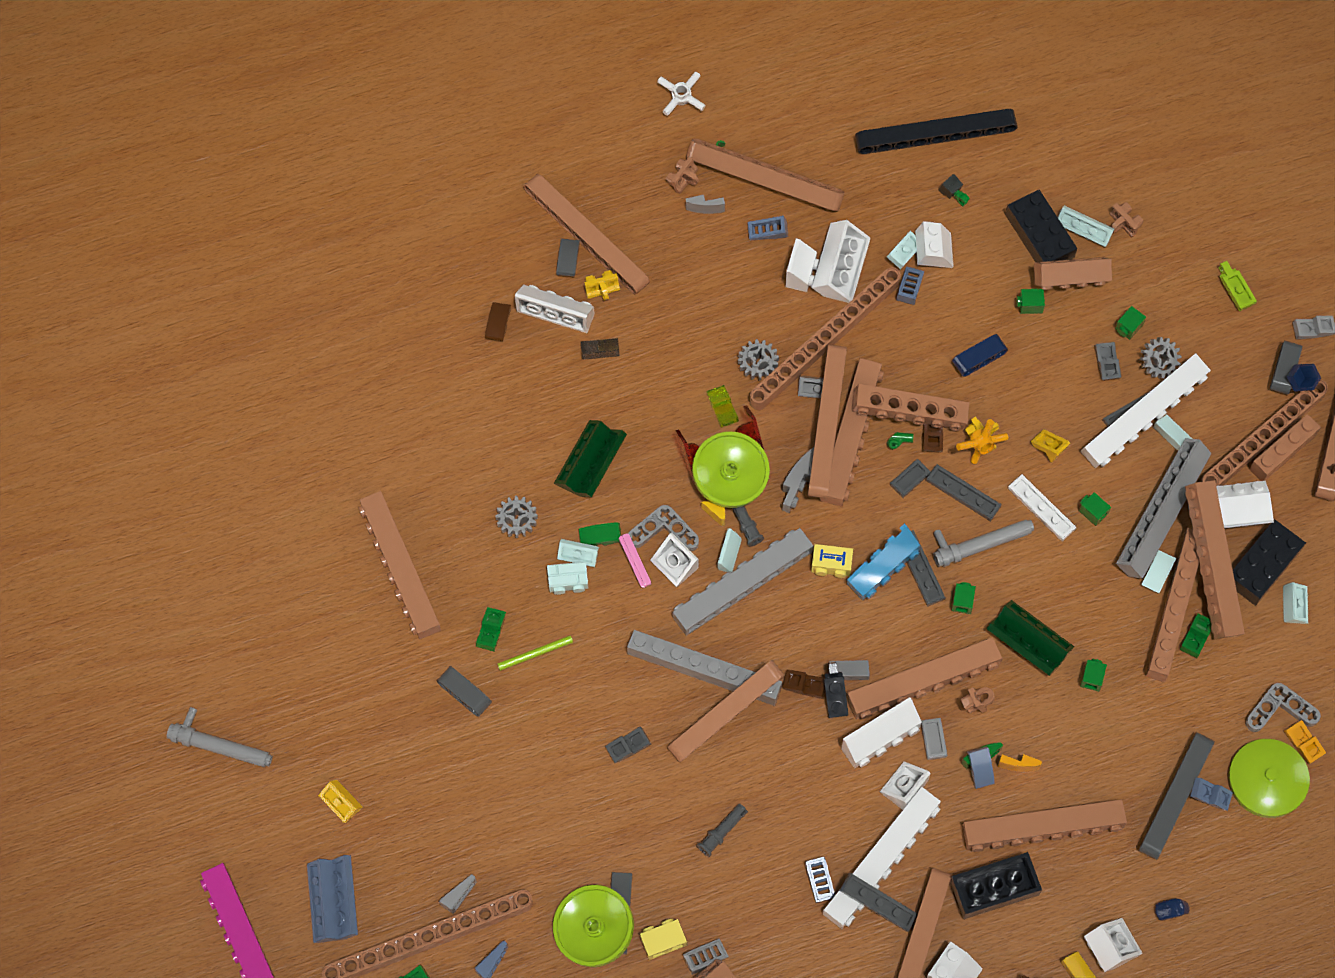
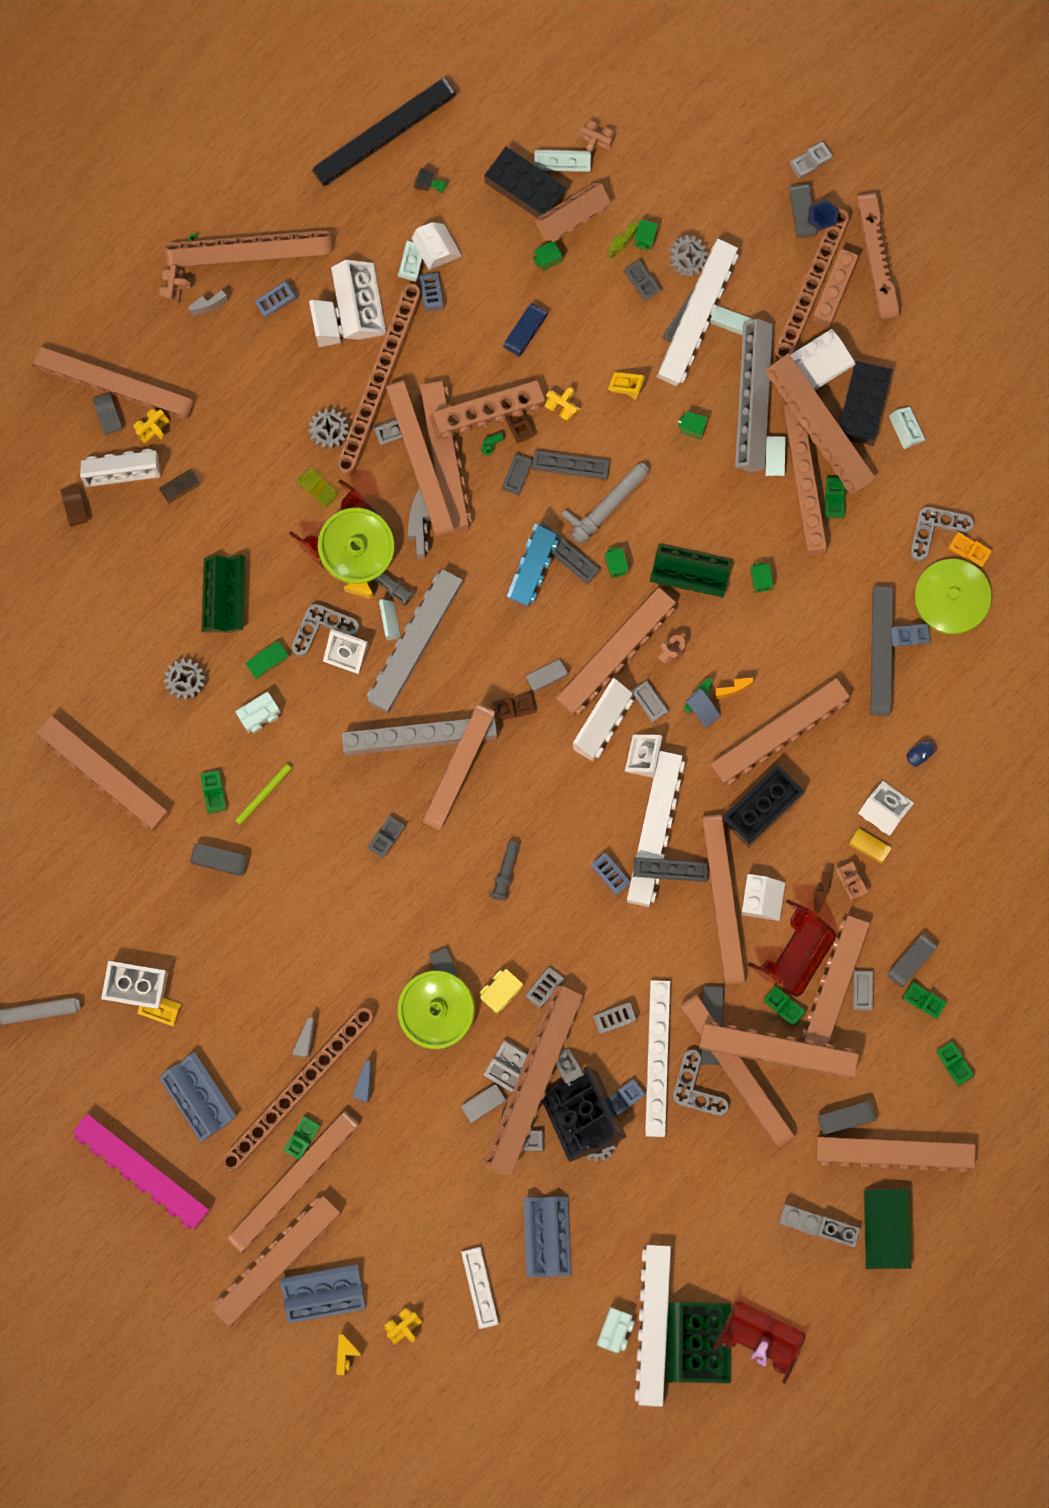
camera: 20 degrees left, 10 degrees up
(328, 766) = (134, 984): none -> white slope
(577, 552) = (255, 686): light aqua plate -> none
(635, 560) = (310, 668): bright pink axle -> none
(681, 99) = (132, 198): white bar -> none
(832, 561) = (484, 584): light yellow brick -> none
(835, 692) = (545, 702): black hinge -> none
(982, 441) = (566, 412): light orange bar -> none
(1042, 507) = (646, 446): white tile -> none
(1104, 320) = (621, 243): none -> clear neon green slope
(1236, 286) = (724, 154): lime hinge -> none

